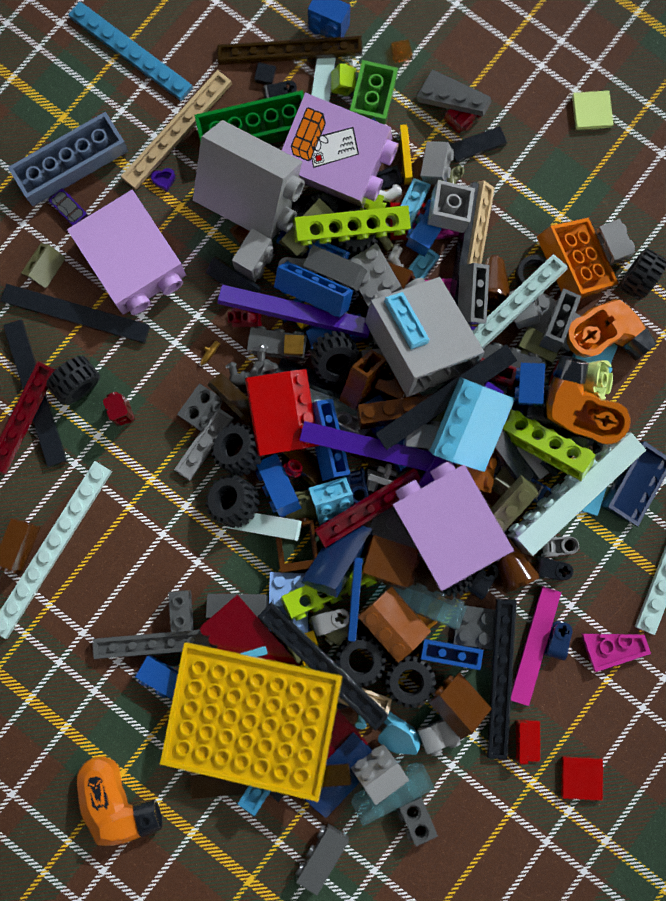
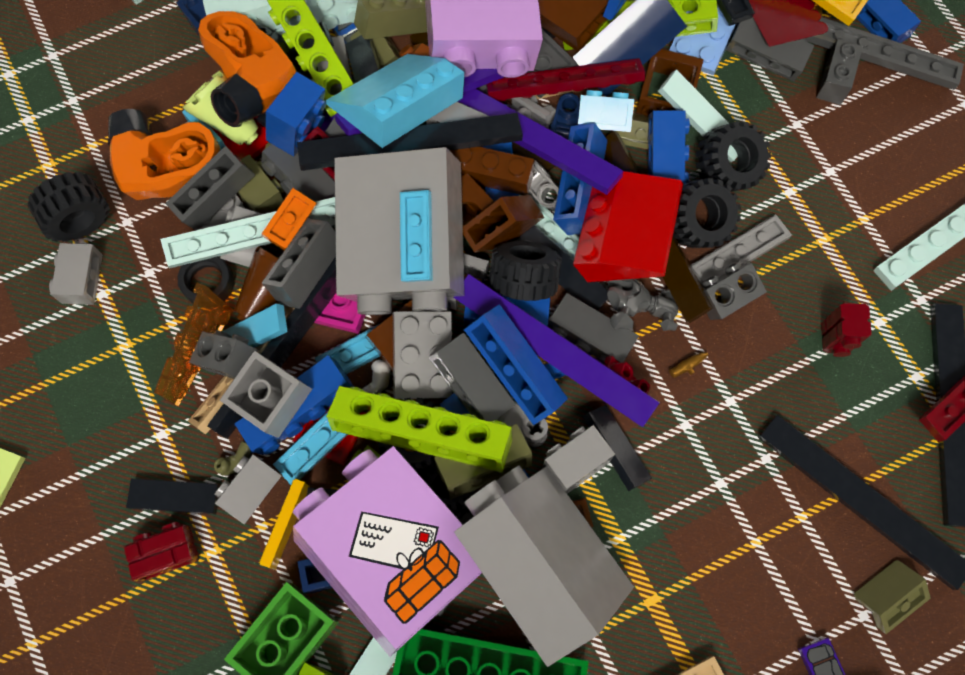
camera: 150 degrees left, 10 degrees down
(73, 380) = (901, 390): black tyre -> none
(128, 253) = (762, 545): lavender brick -> none
(163, 179) = (661, 655): dark purple tile -> none
(293, 468) = (634, 160): dark red plate -> none
(294, 345) = (573, 310): pearl gold tile -> none
(391, 194) = (329, 475): white arm -> none
(451, 94) = (169, 584): dark grey wing -> none
(483, 248) = (261, 326): none -> medium azure tile
(492, 225) = (221, 353): none -> dark grey brick
(496, 316) = (289, 219): none -> orange plate
(515, 226) = (205, 315): none -> clear orange wing
(582, 252) = (133, 274): orange slope -> none

